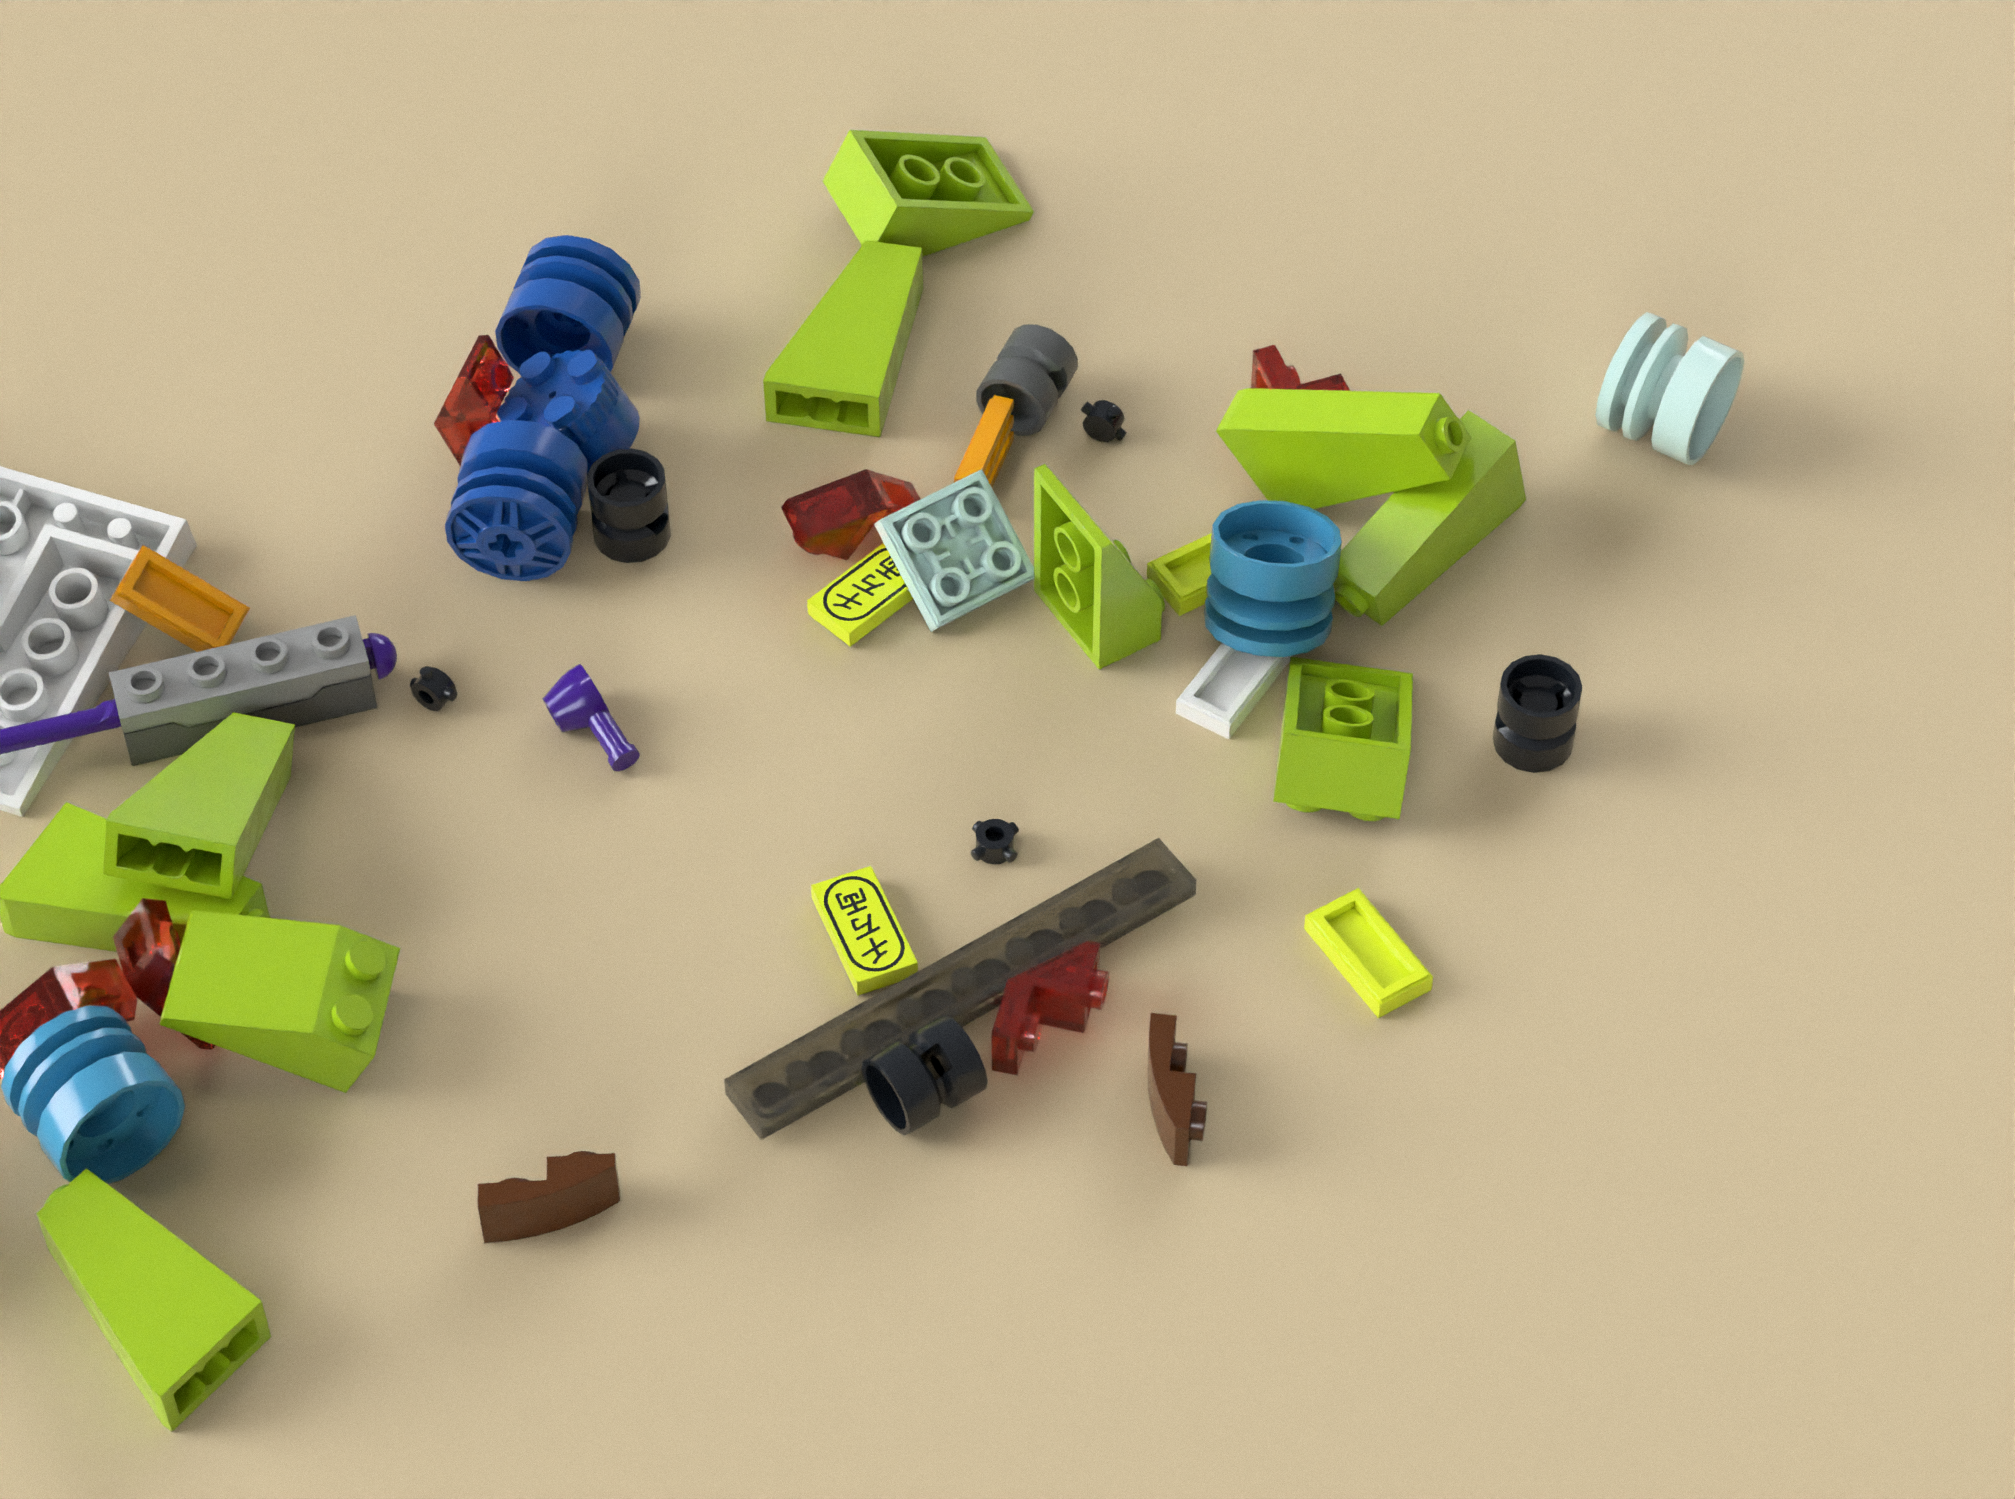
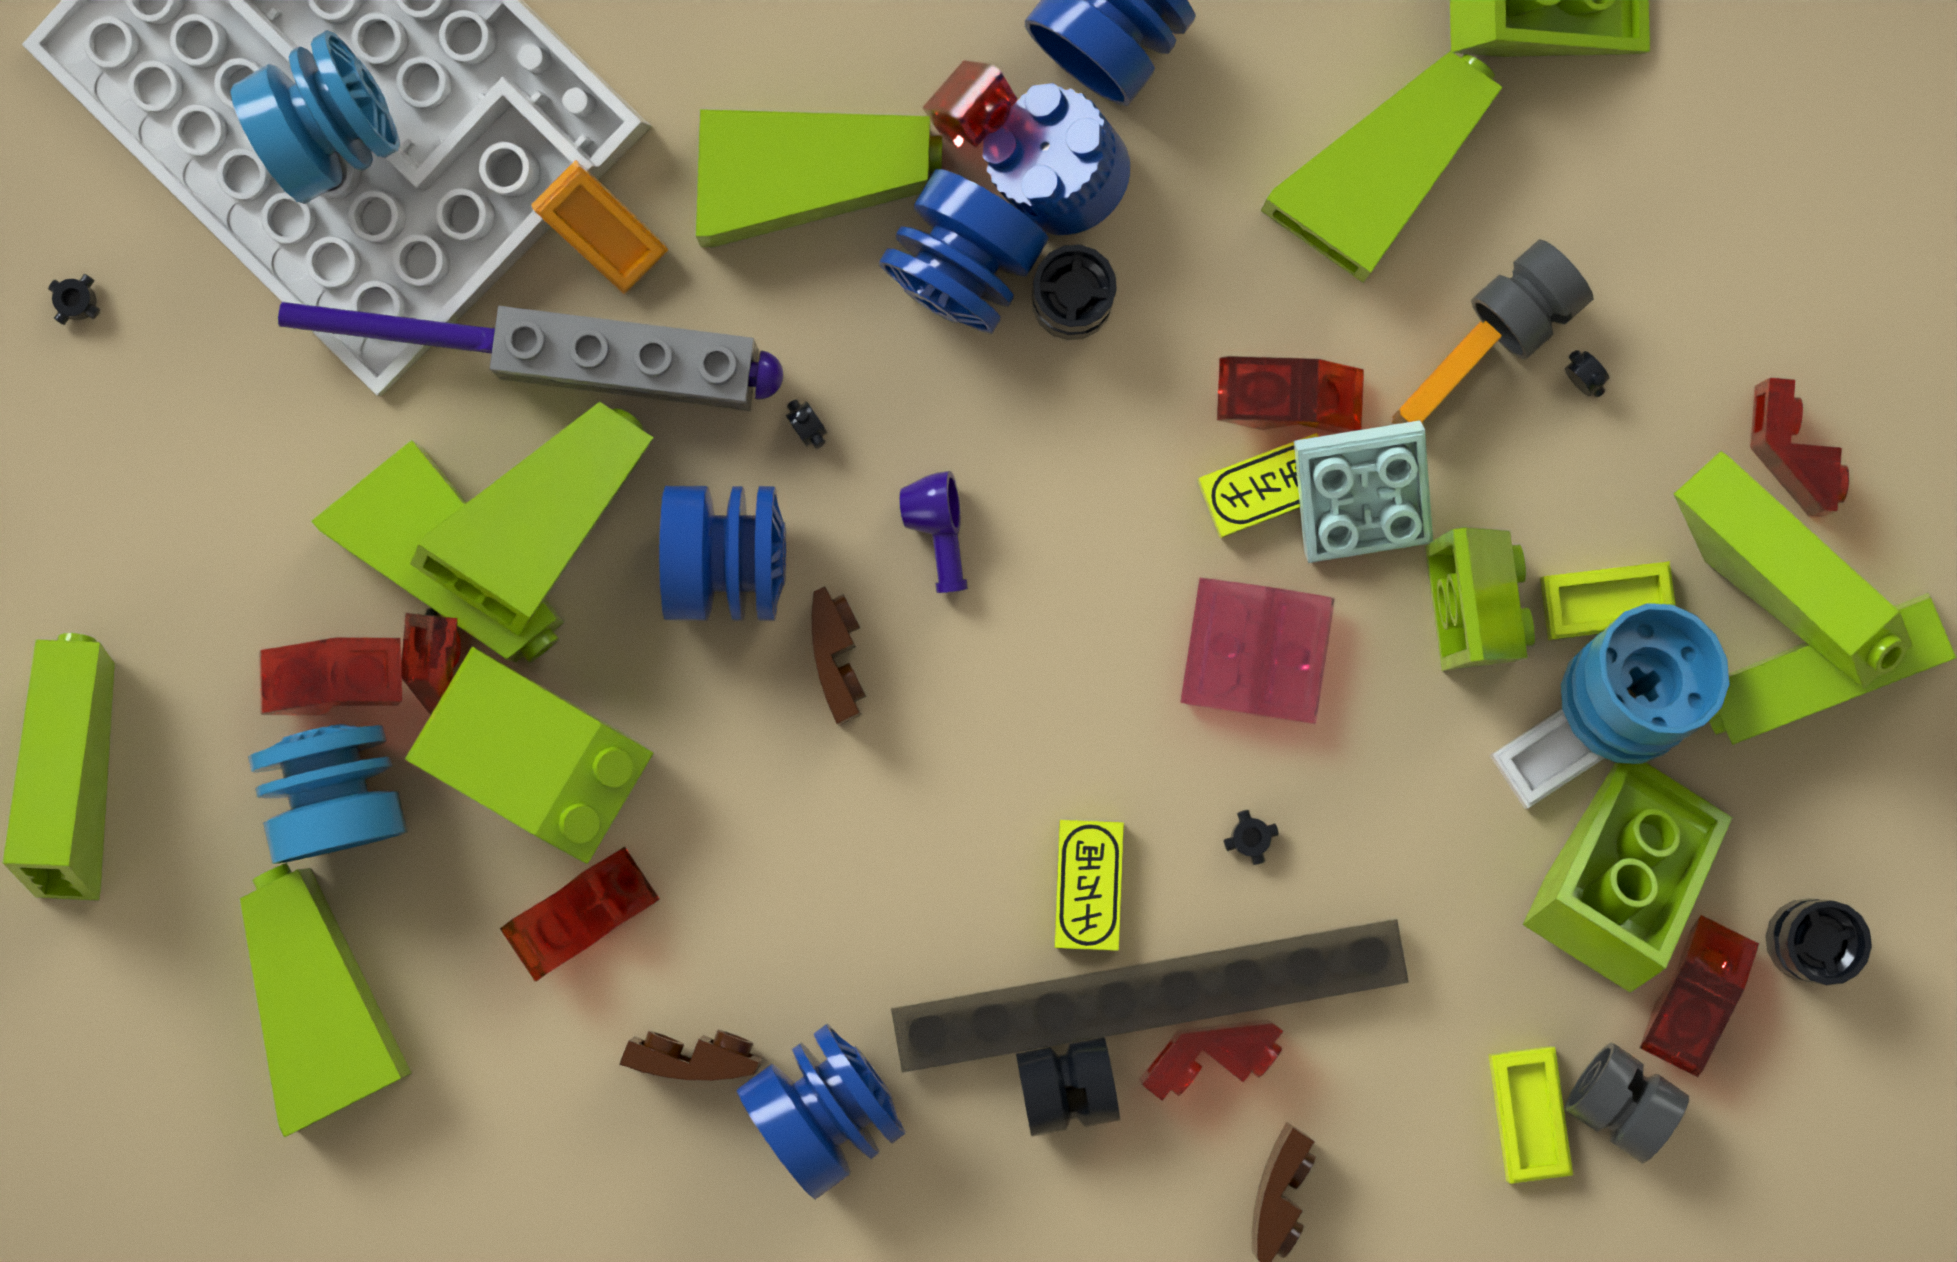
camera: 20 degrees right, 35 degrees up
(347, 510) = (803, 167): none -> lime slope
(391, 1125) = (579, 914): none -> clear red slope
(396, 781) = (720, 553): none -> blue wheel
(531, 827) = (831, 637): none -> reddish brown slope
(695, 1167) = (821, 1111): none -> blue wheel
(925, 701) = (1257, 650): none -> clear pink slope
(1444, 893) = (1633, 1107): none -> dark grey wheel
(1461, 800) = (1700, 996): none -> clear red slope

